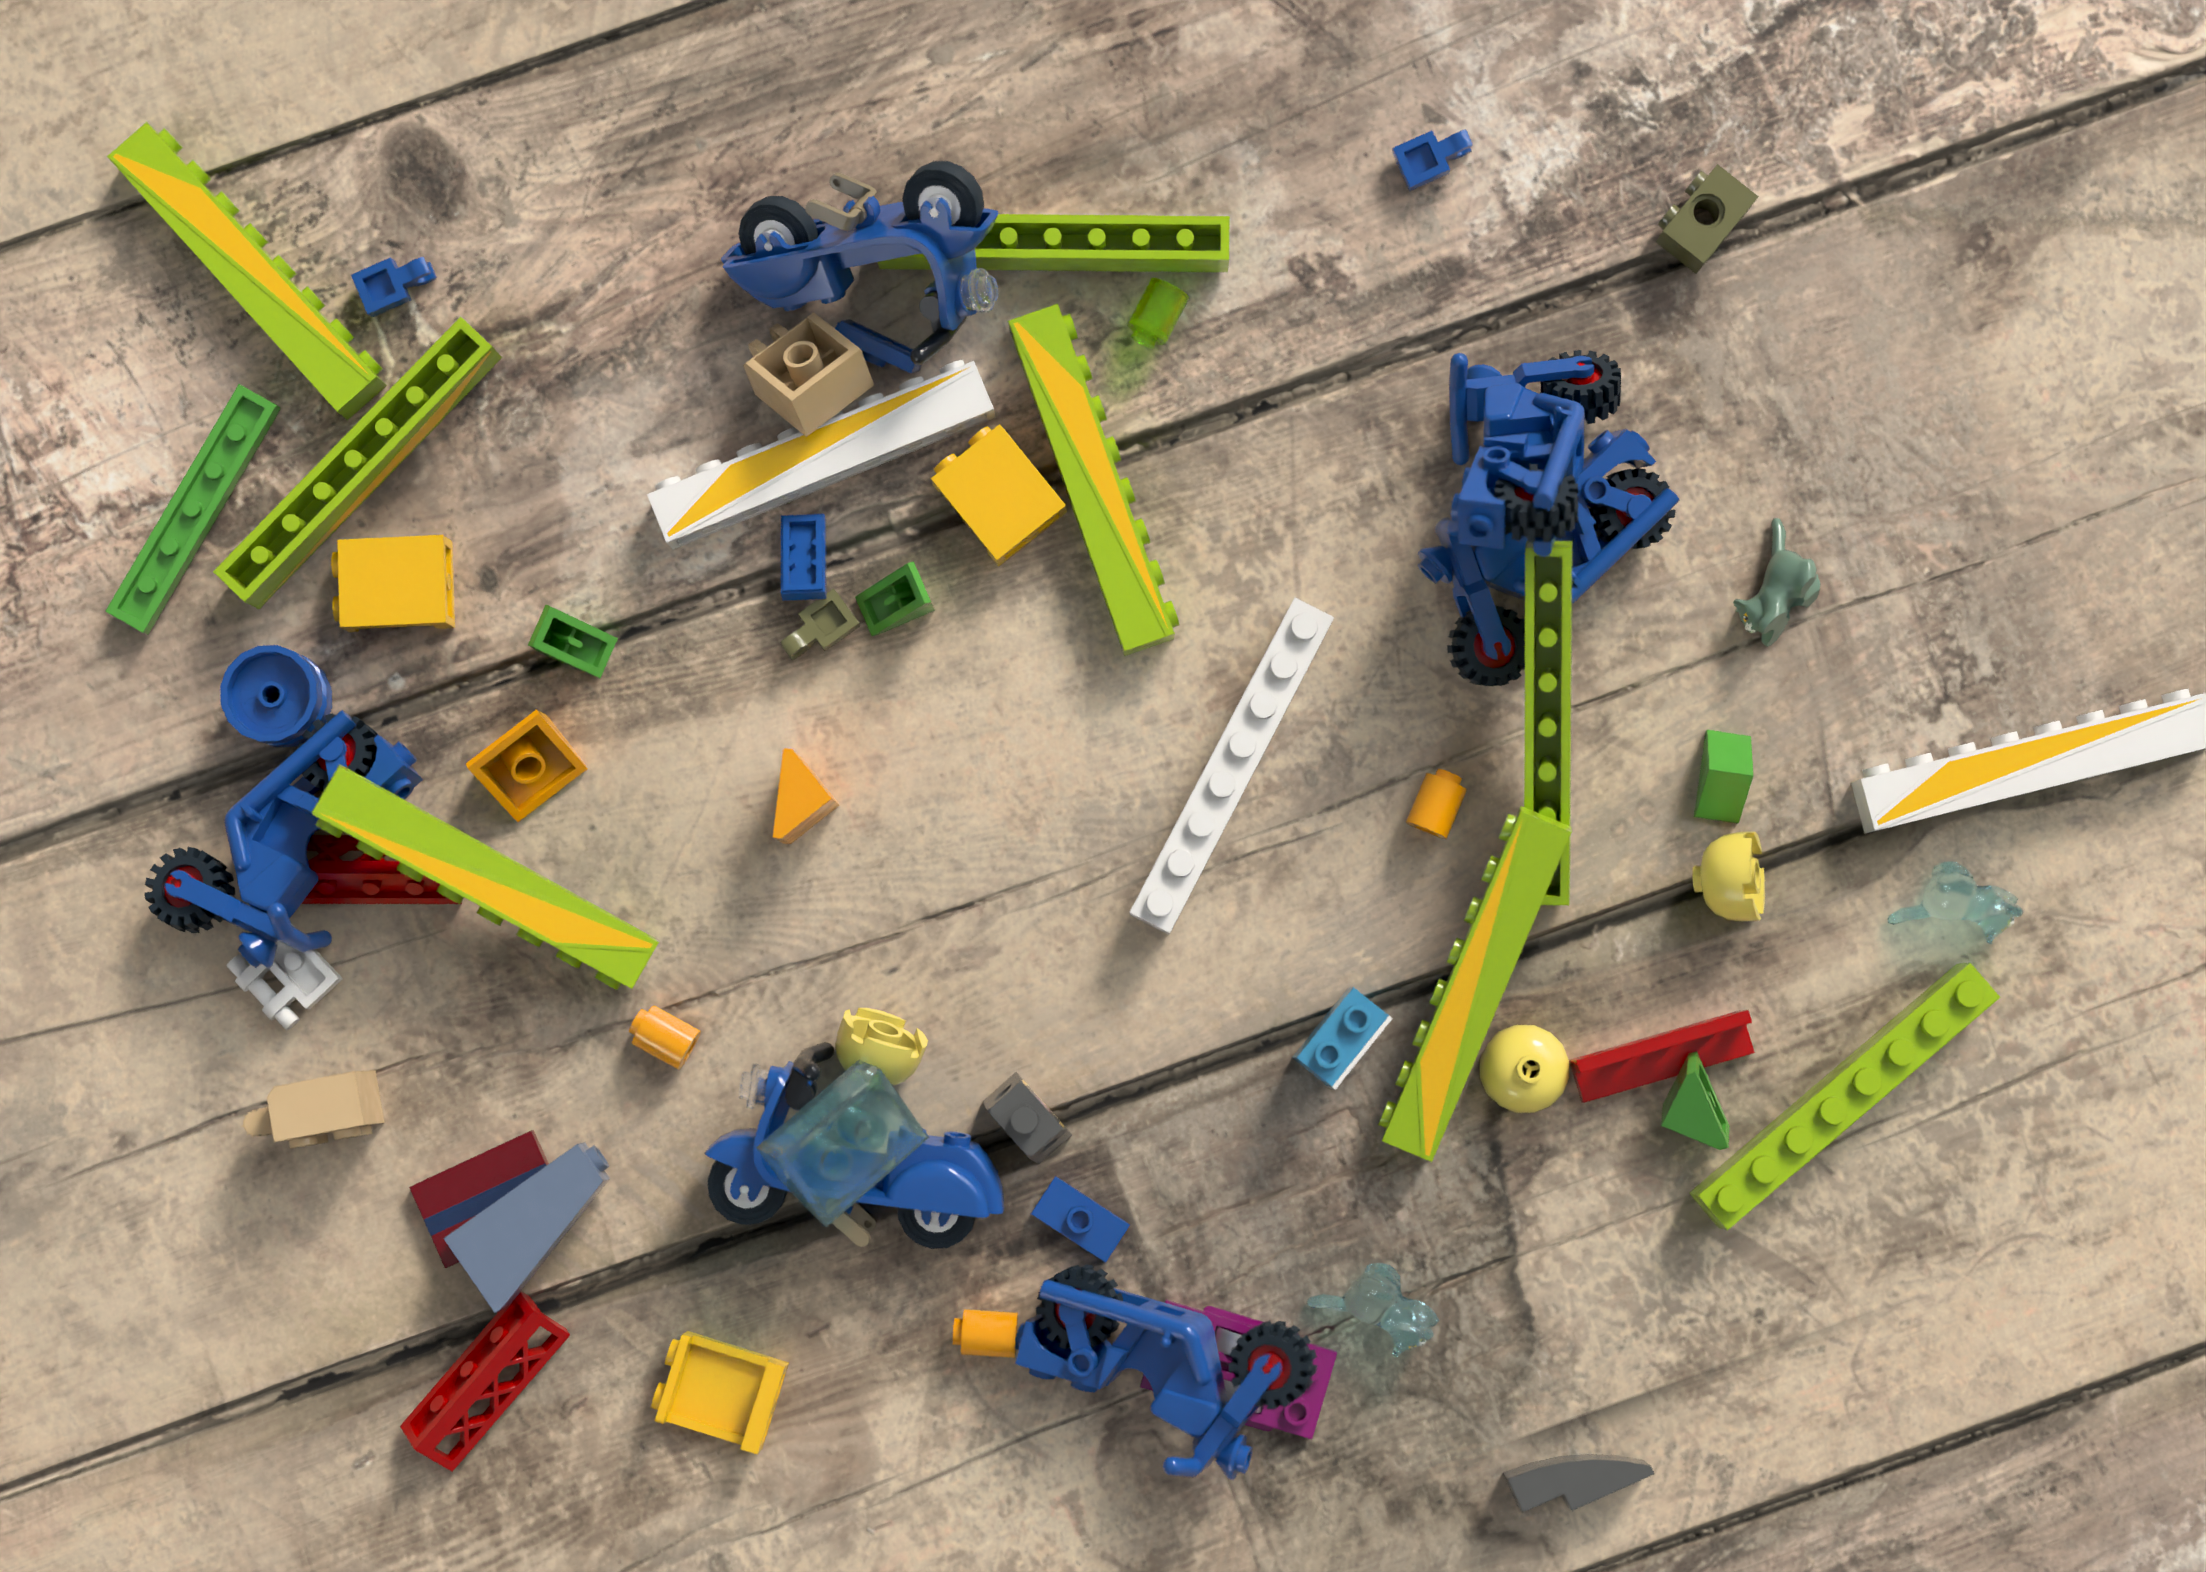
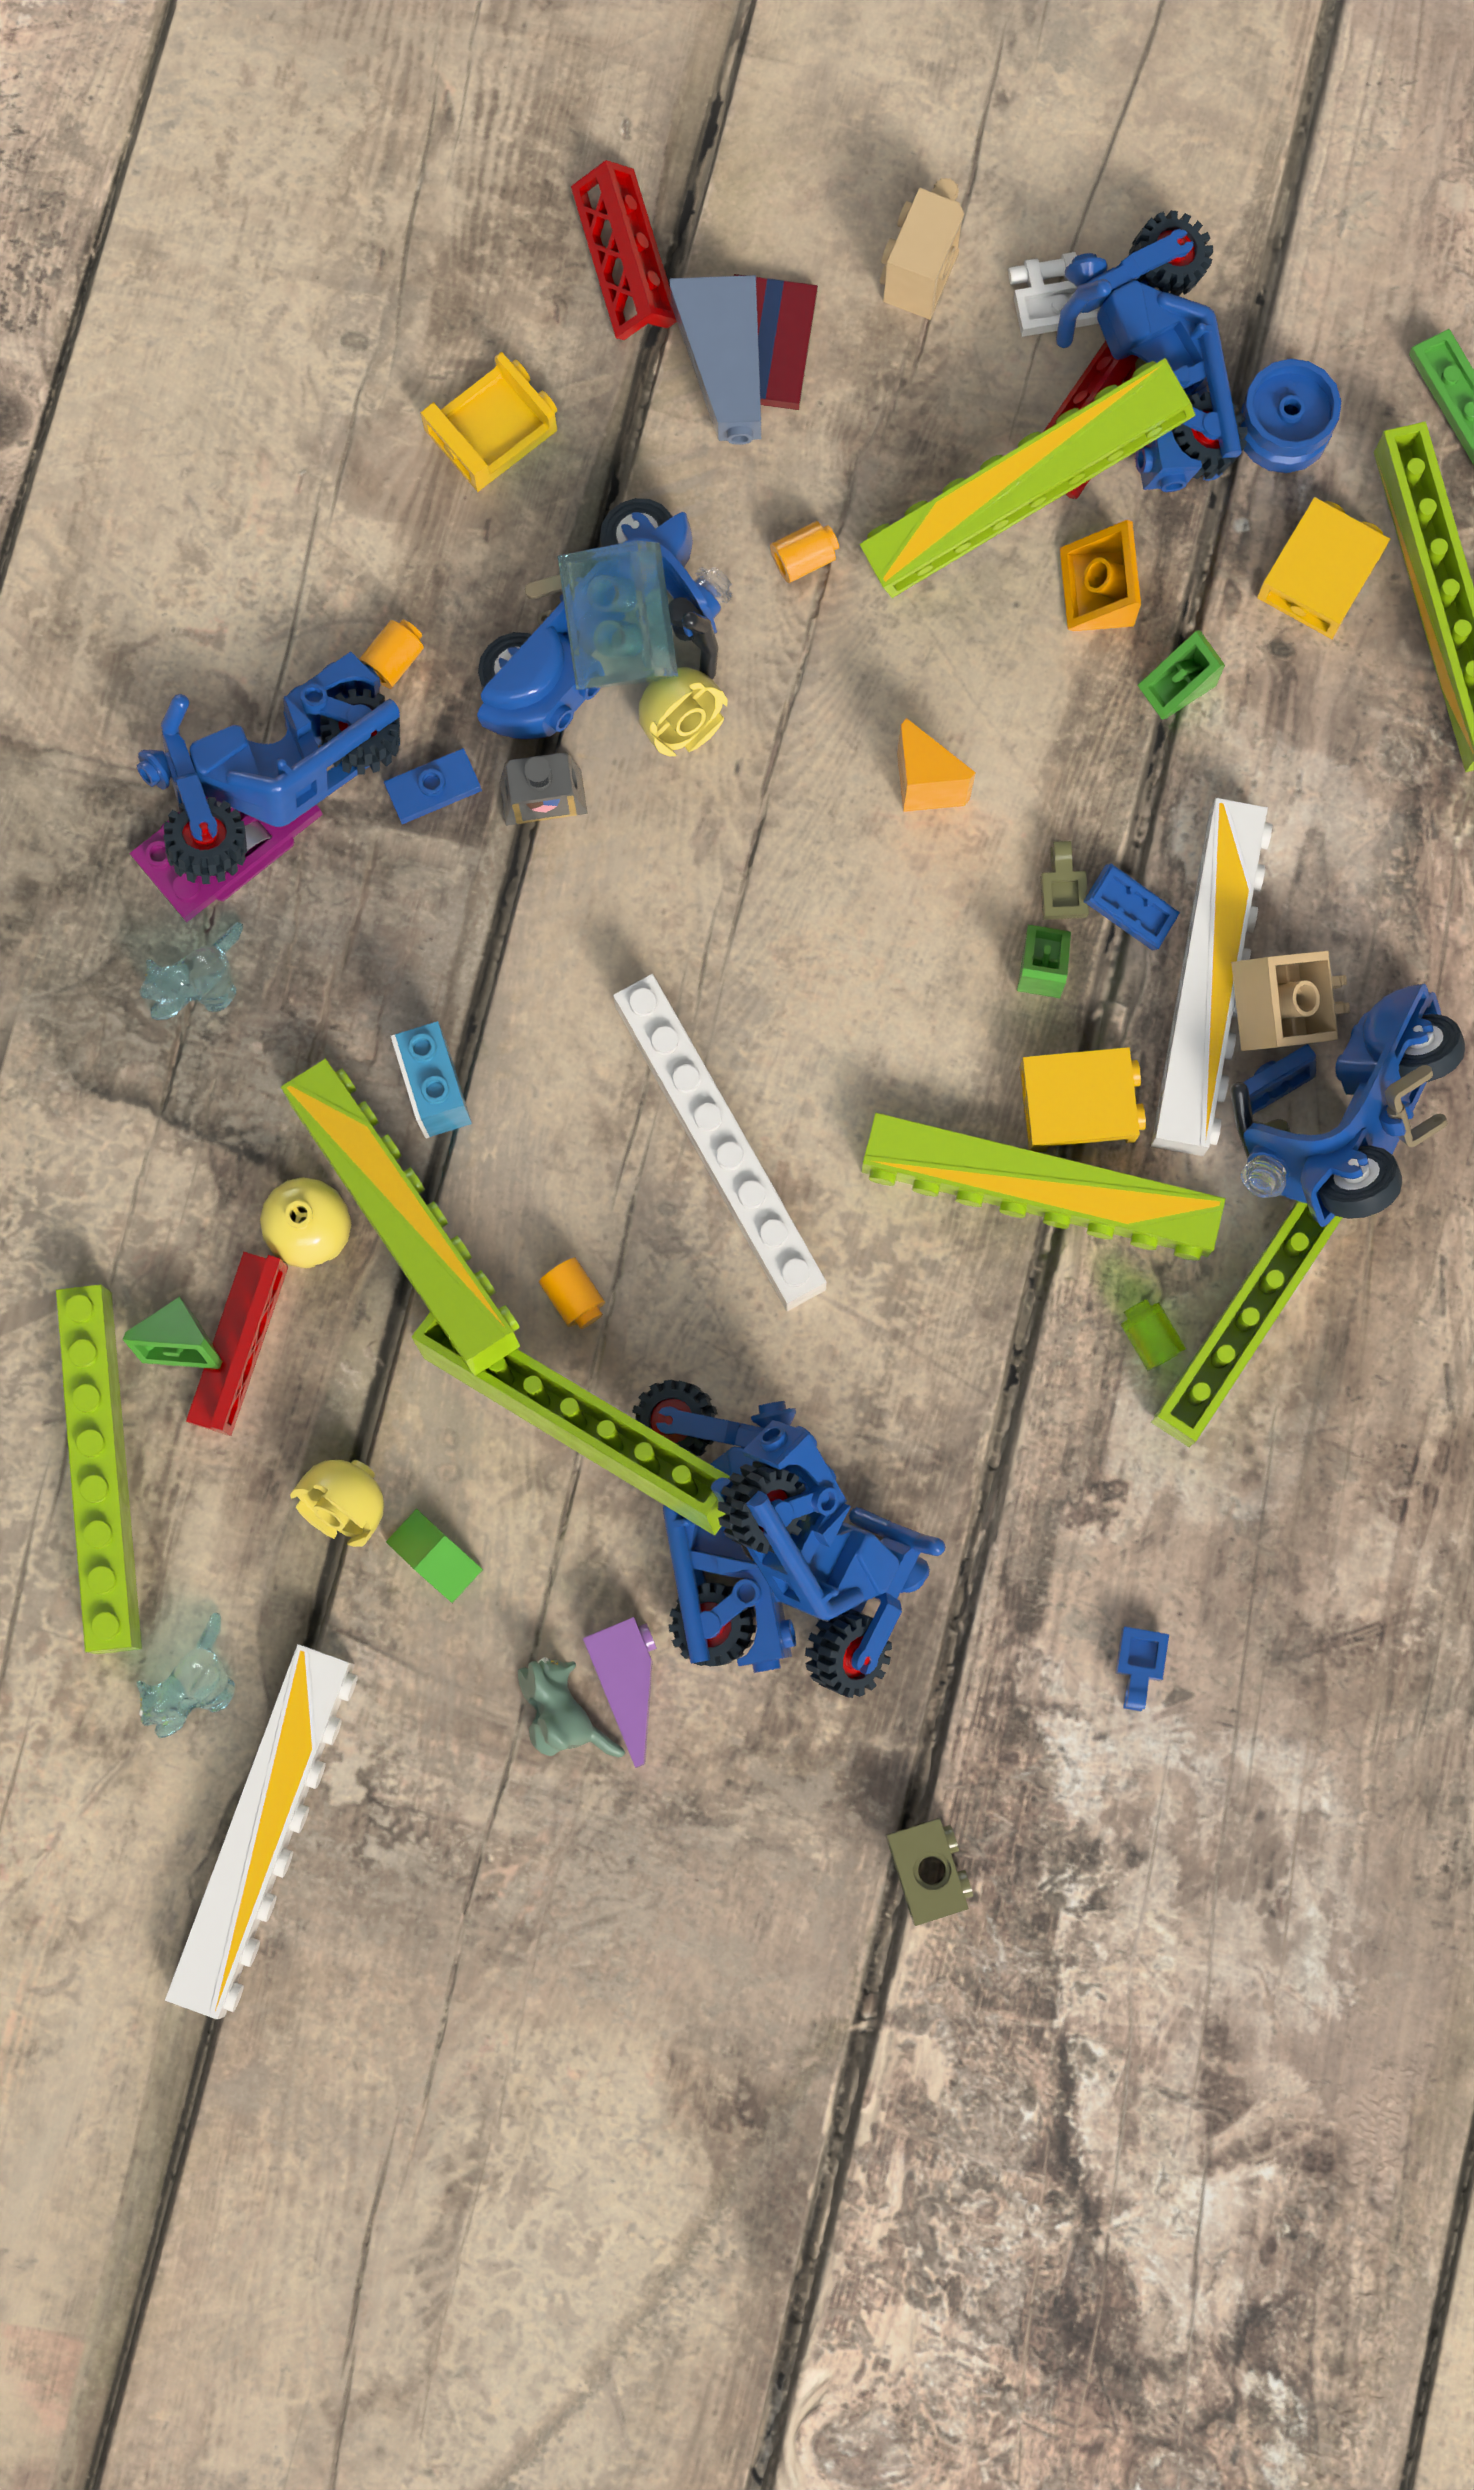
camera: 120 degrees right, 5 degrees down
(1713, 557) = (626, 1674): none -> medium lavender slope

